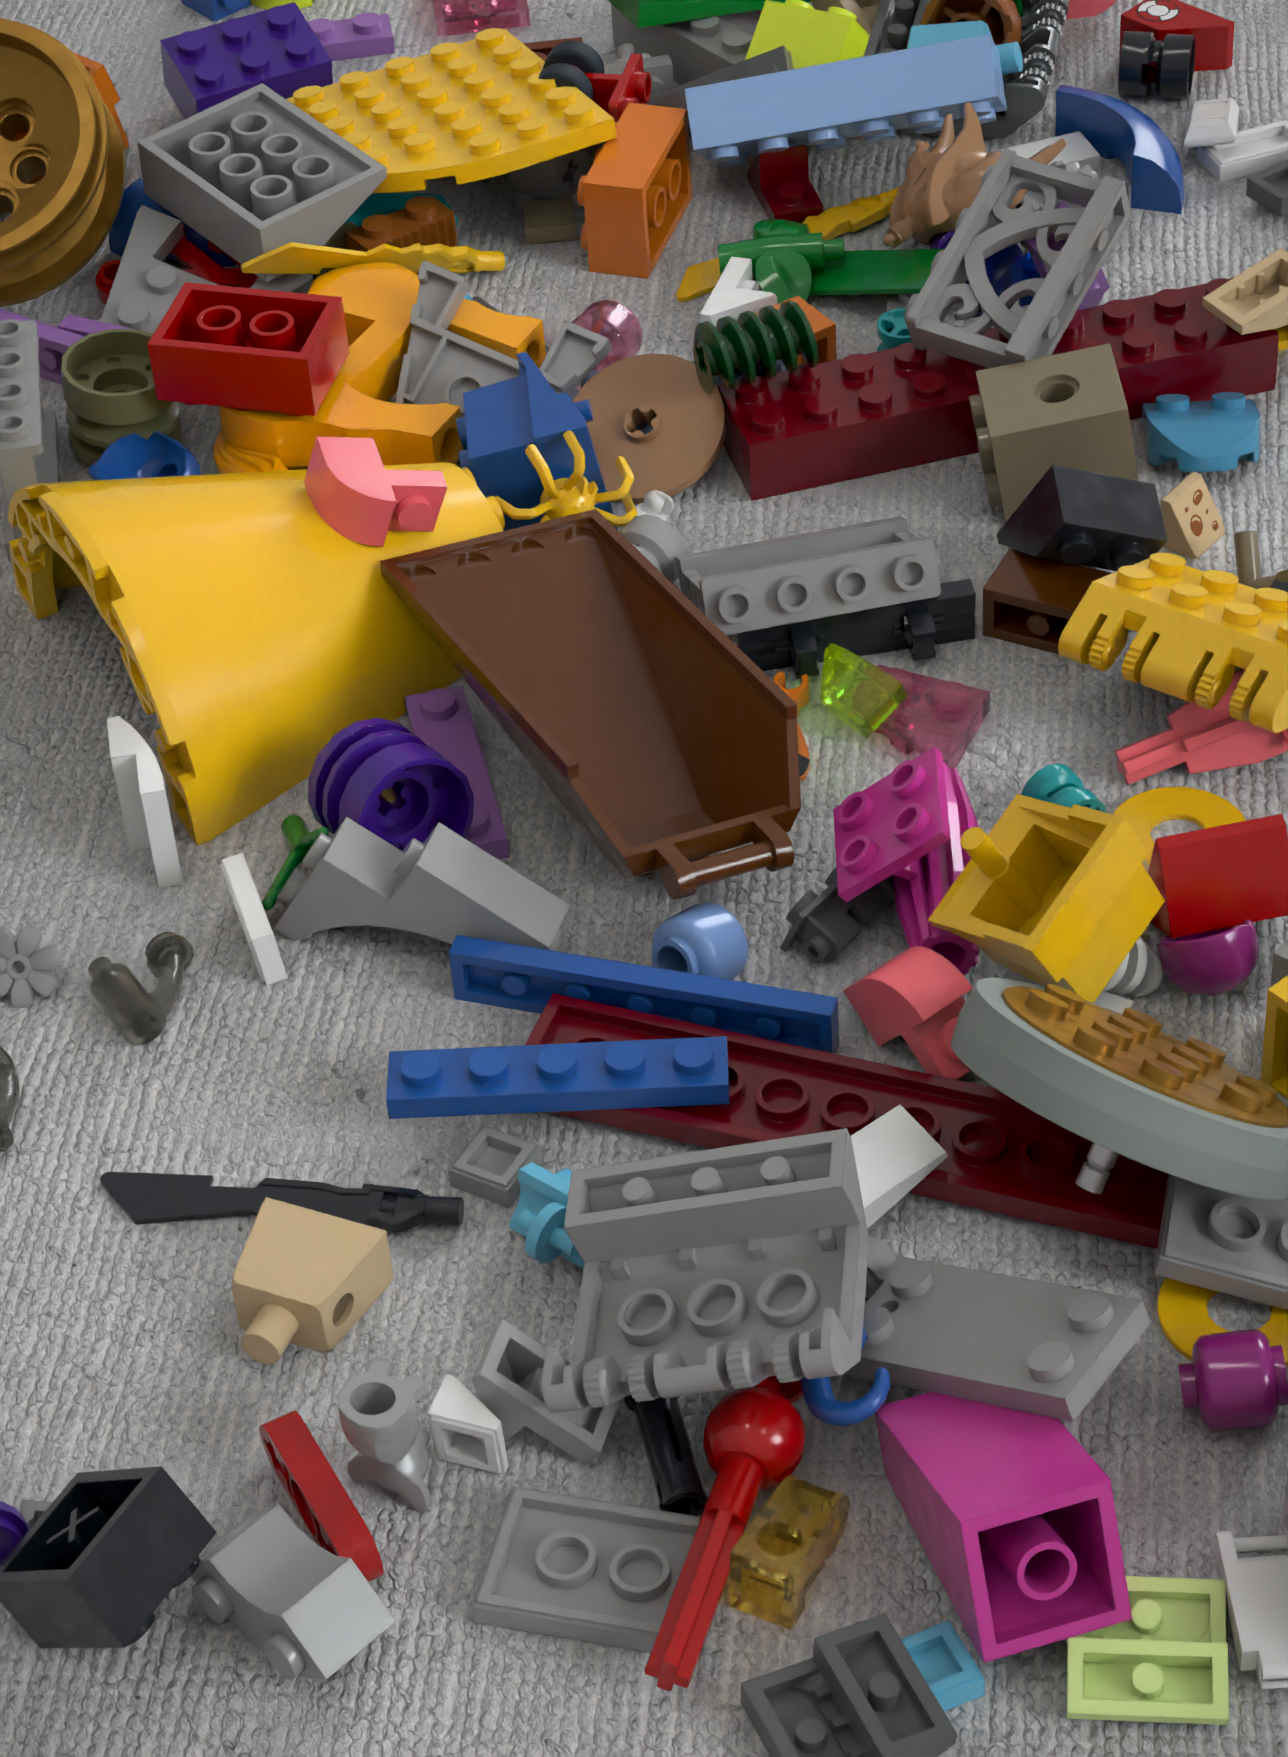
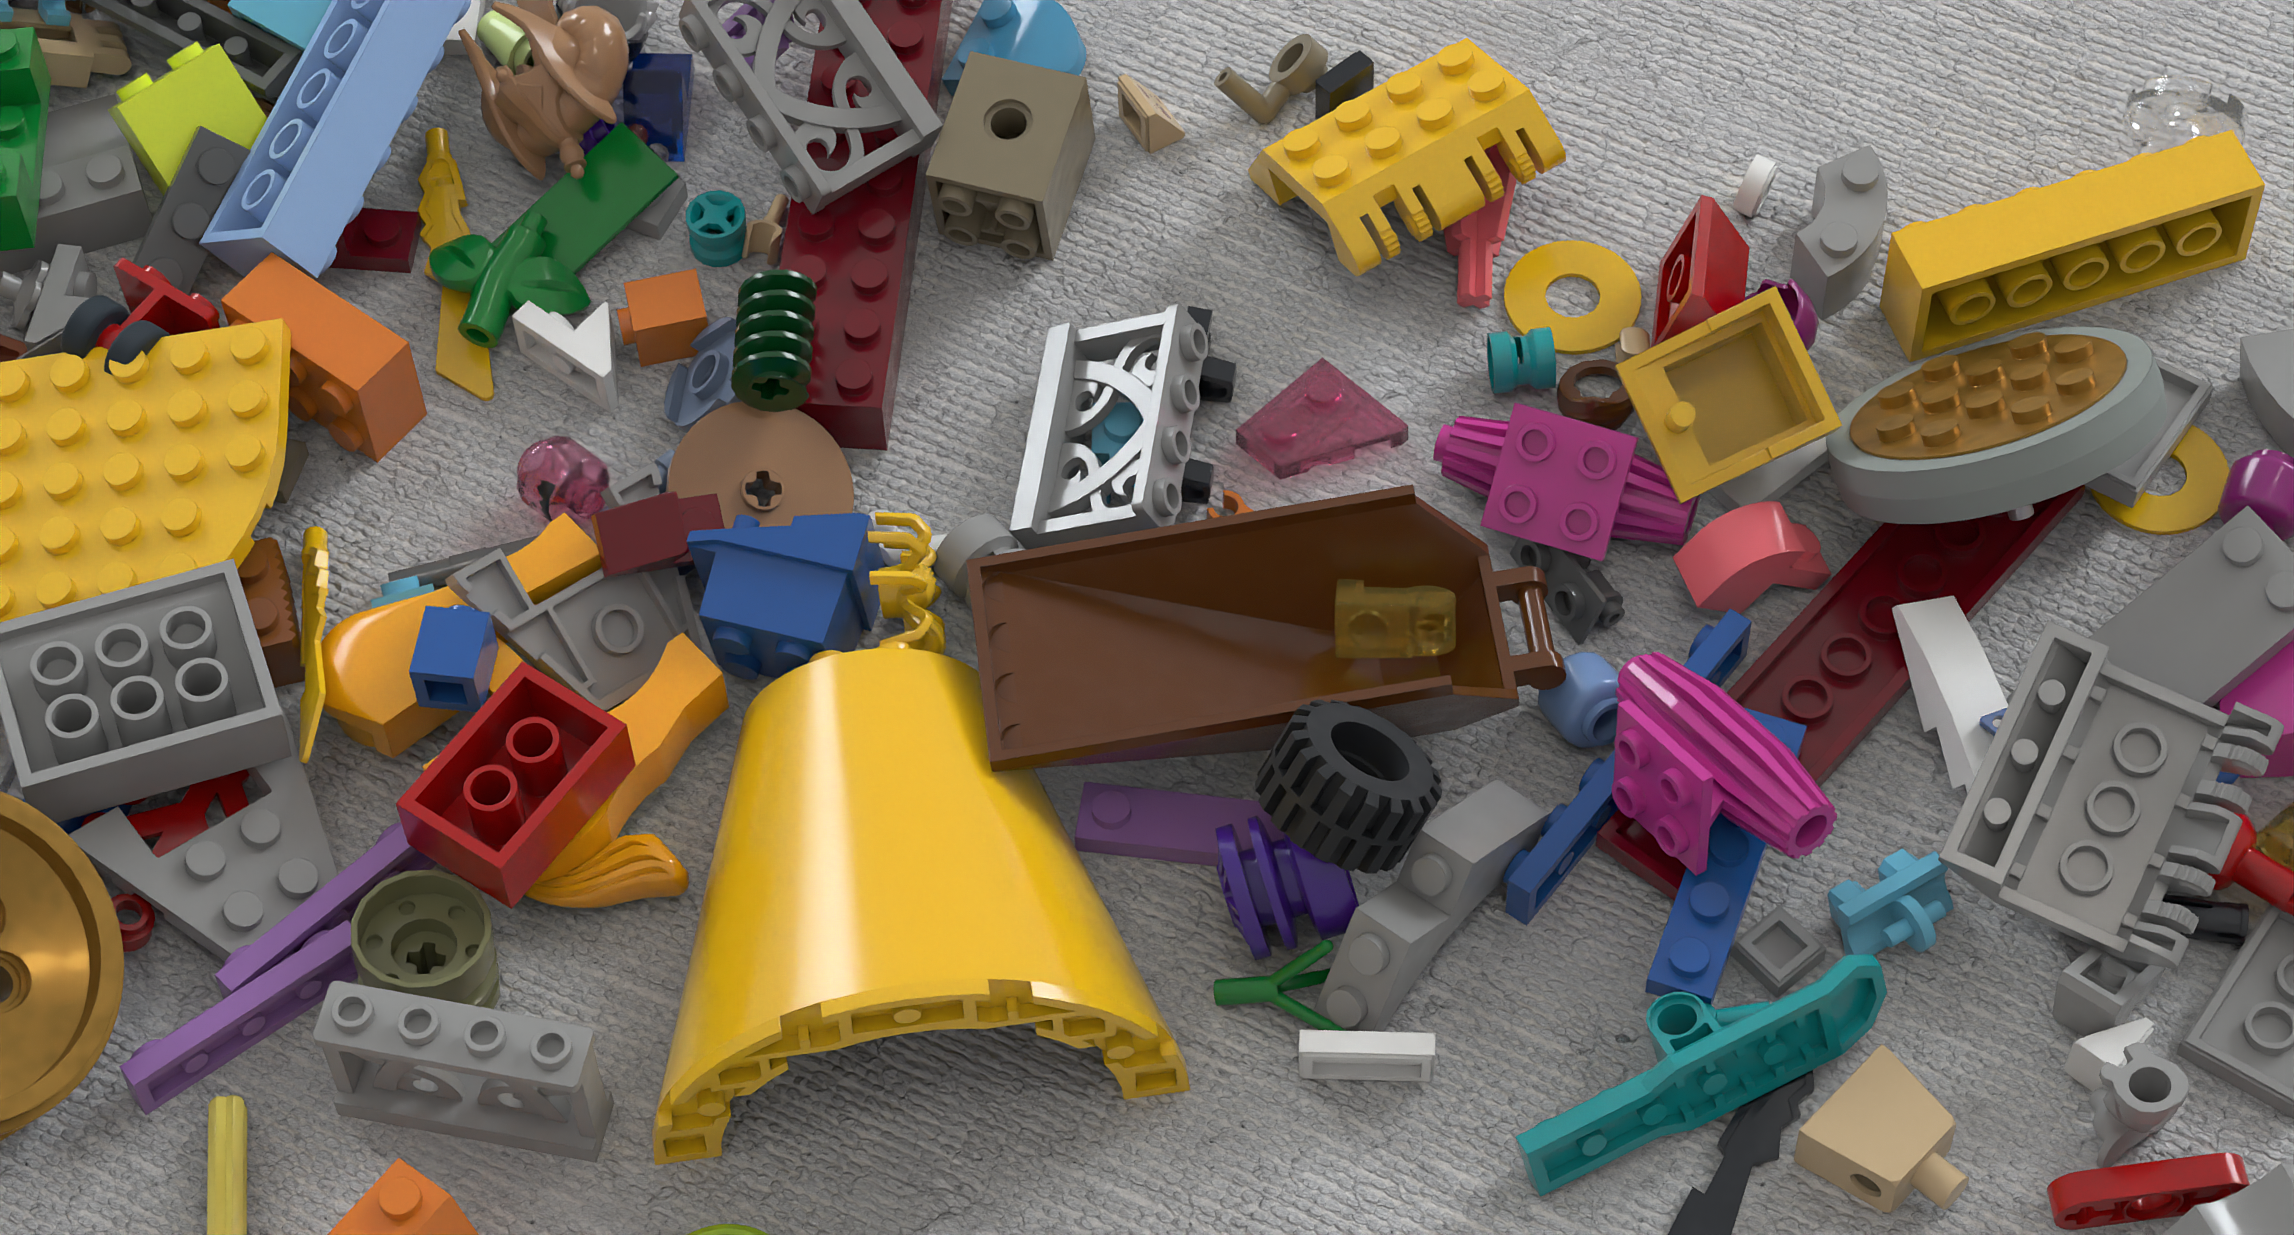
camera: 70 degrees left, 15 degrees up
(130, 1007) = (1419, 1202): clear smoke plant -> none
(143, 800) = (1168, 1092): white slope -> none
(144, 458) = (567, 970): blue hair -> none
(323, 1129) = (1707, 1068): none -> teal piece
(363, 498) = (916, 738): coral brick -> none
(367, 294) = (454, 658): none -> blue brick
(466, 717) = (1348, 786): none -> black tyre
(554, 361) = (652, 532): none -> dark red slope
(598, 1006) = (1698, 754): none -> dark pink plate
(688, 779) = (1393, 621): none -> clear yellow leg
(858, 690) = (1276, 457): clear neon green slope -> none
(1033, 599) = (1228, 260): reddish brown brick -> none
(1087, 520) = (1186, 189): black slope -> none

